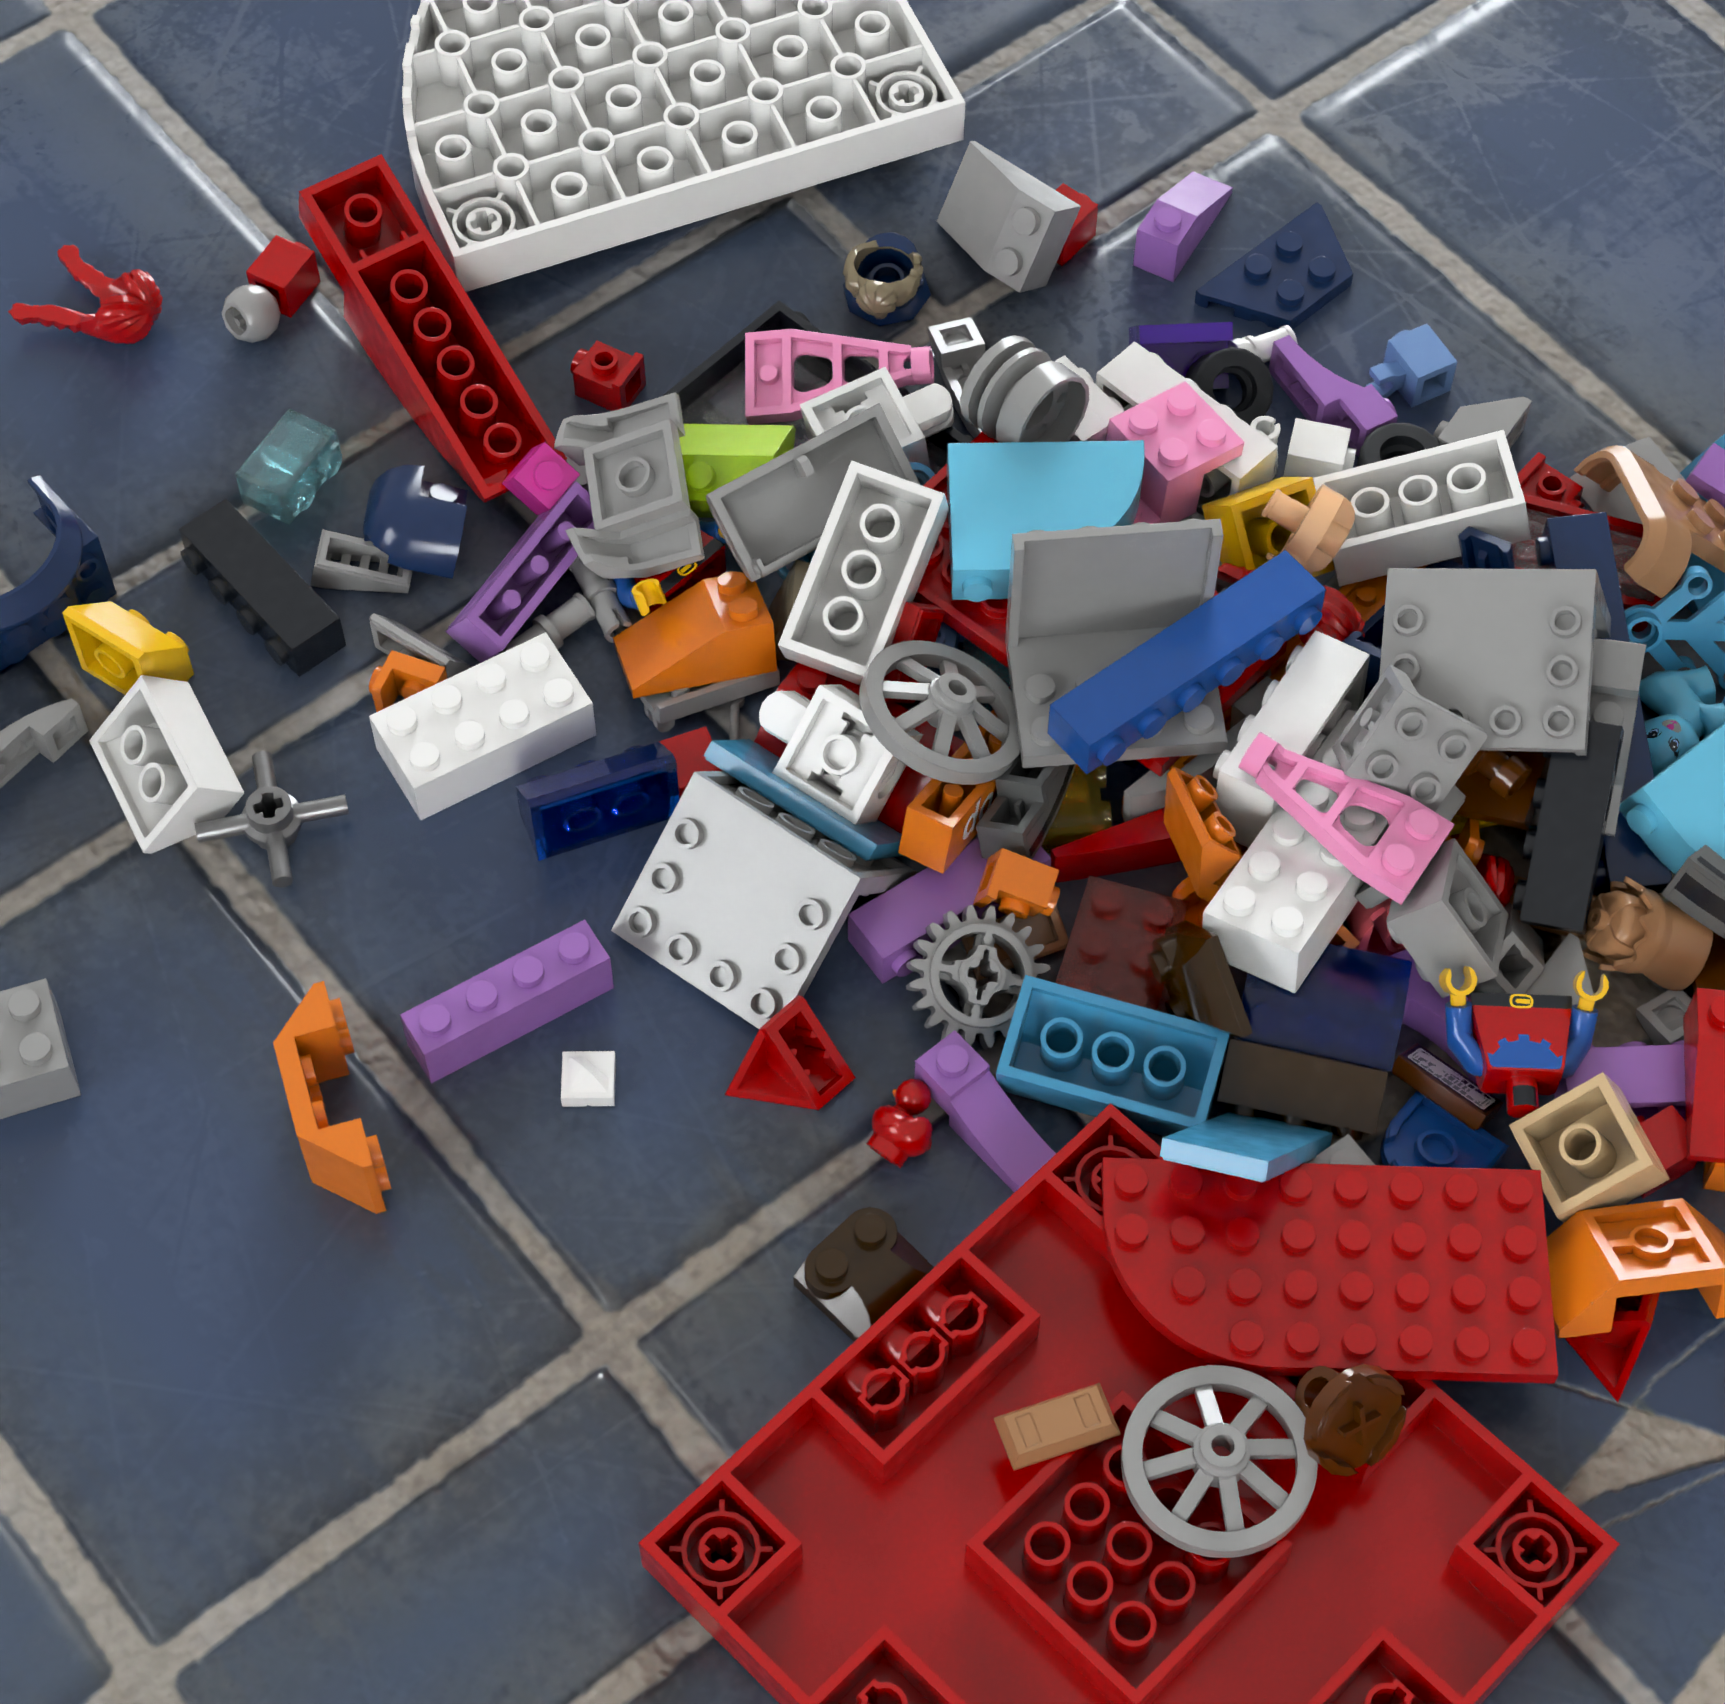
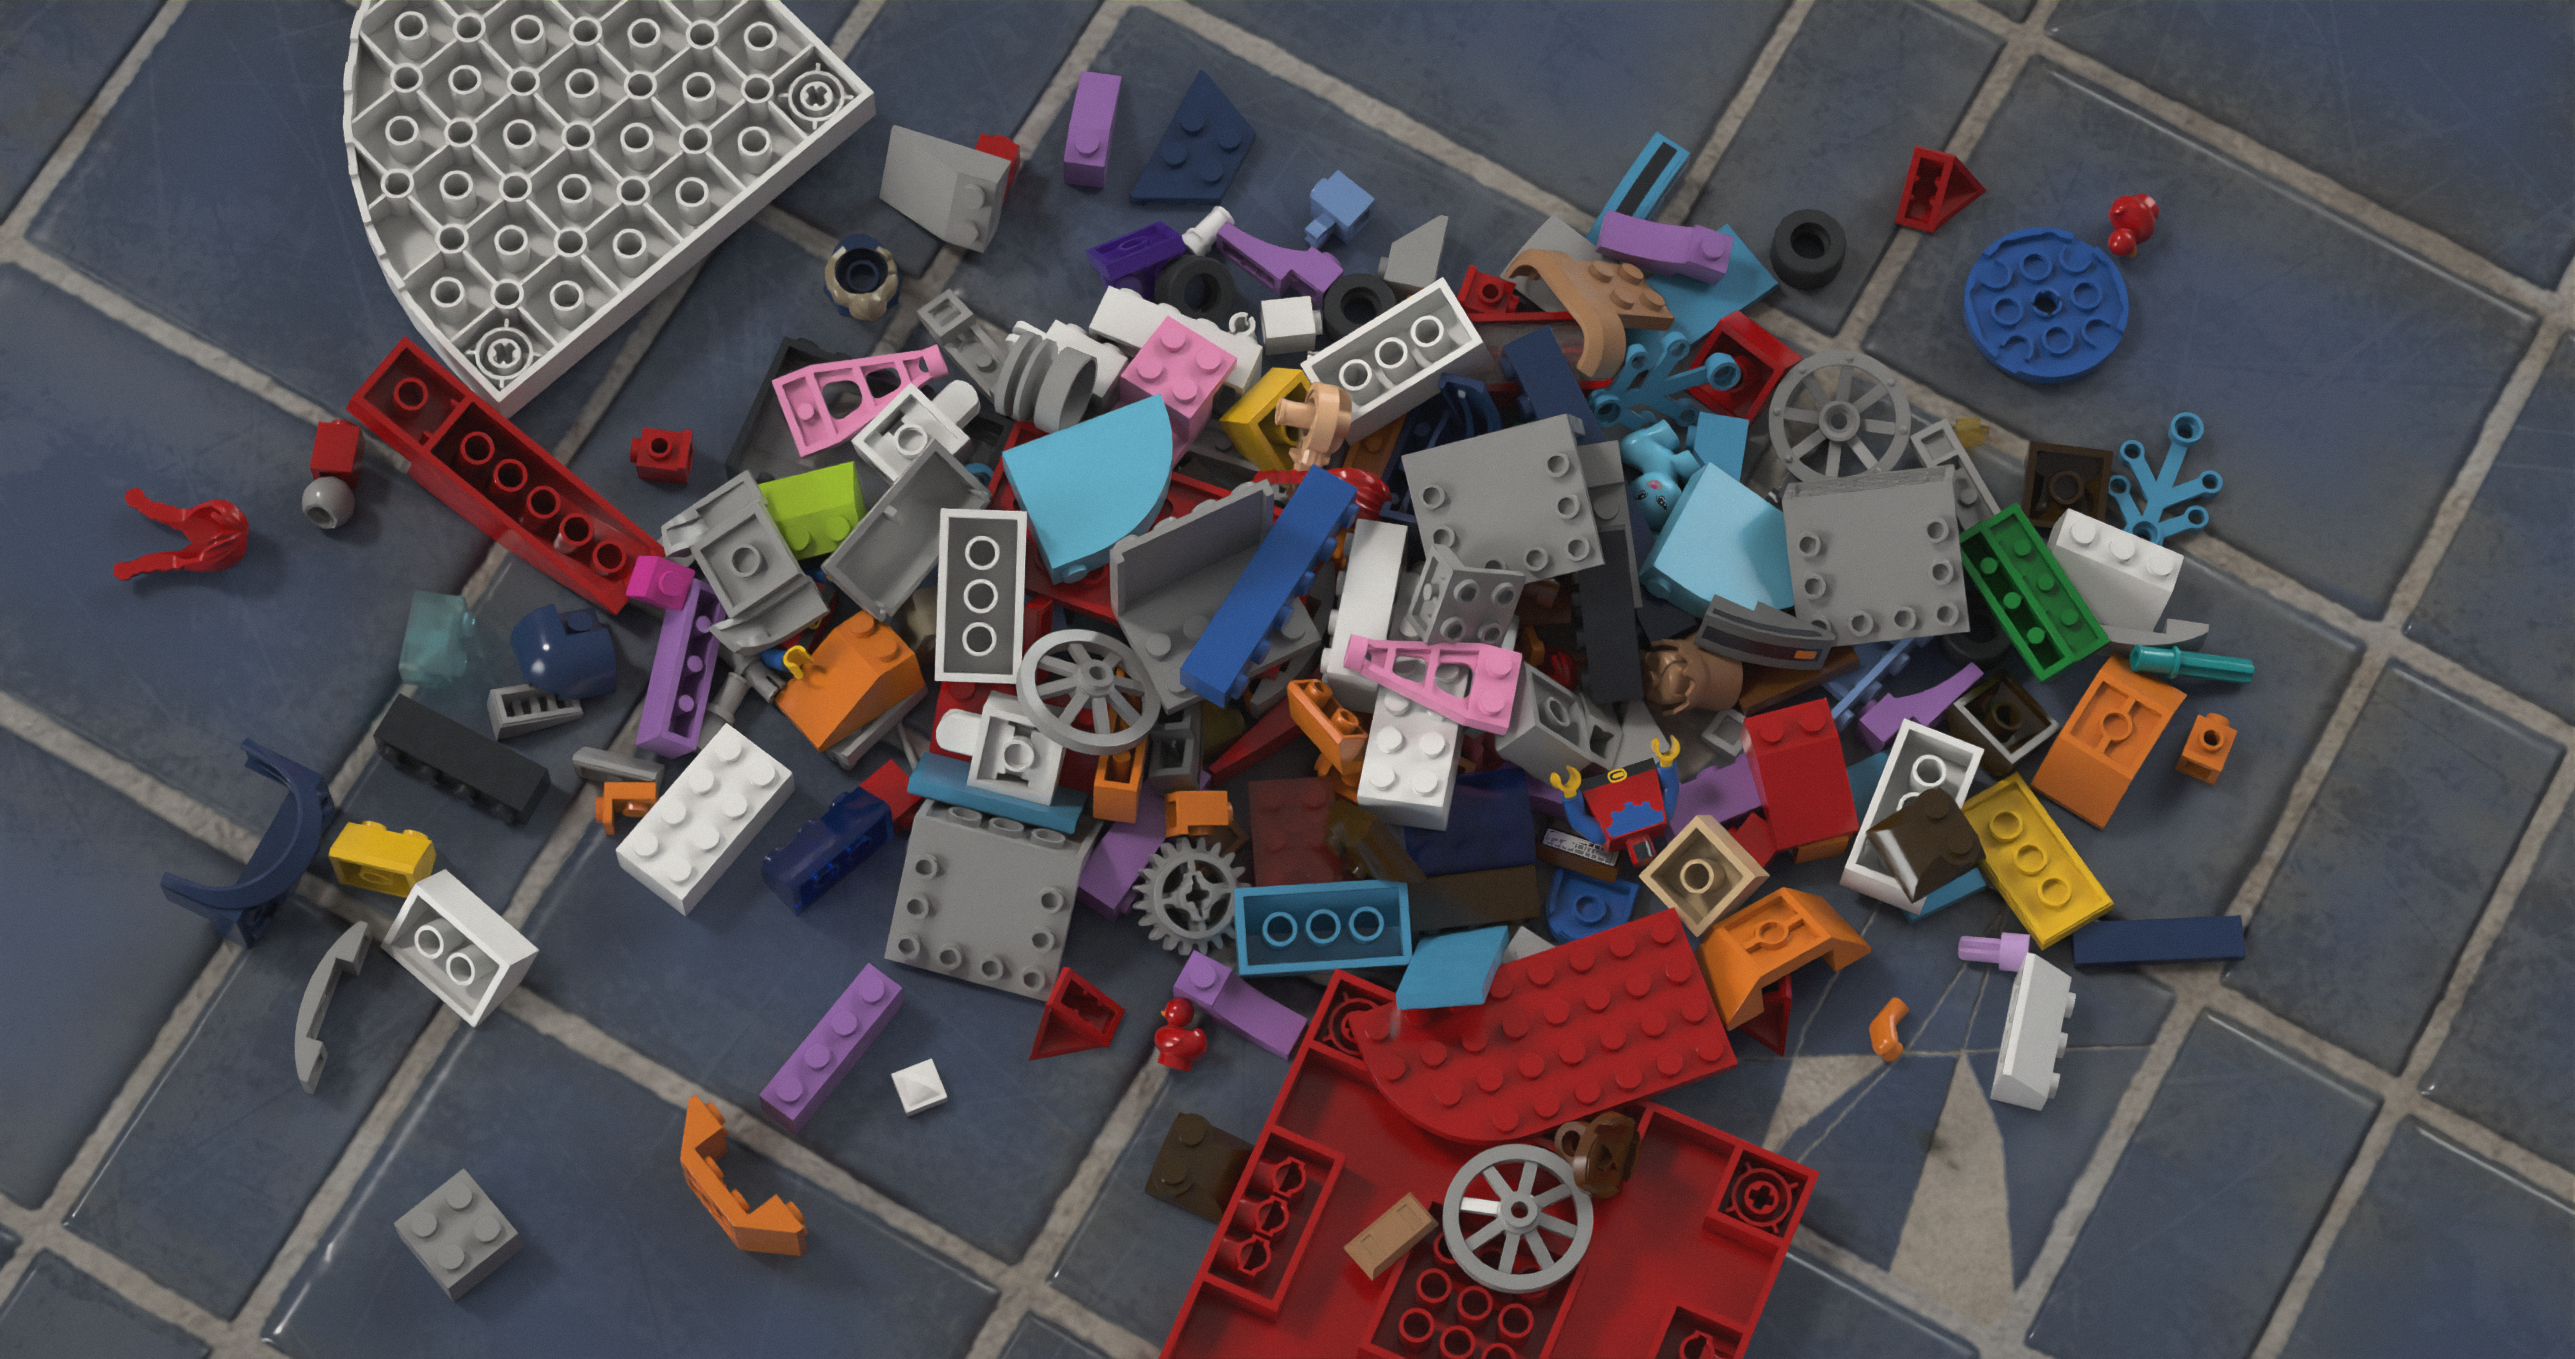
camera: 25 degrees left, 10 degrees up
(271, 818) = (579, 951): flat silver bar -> none

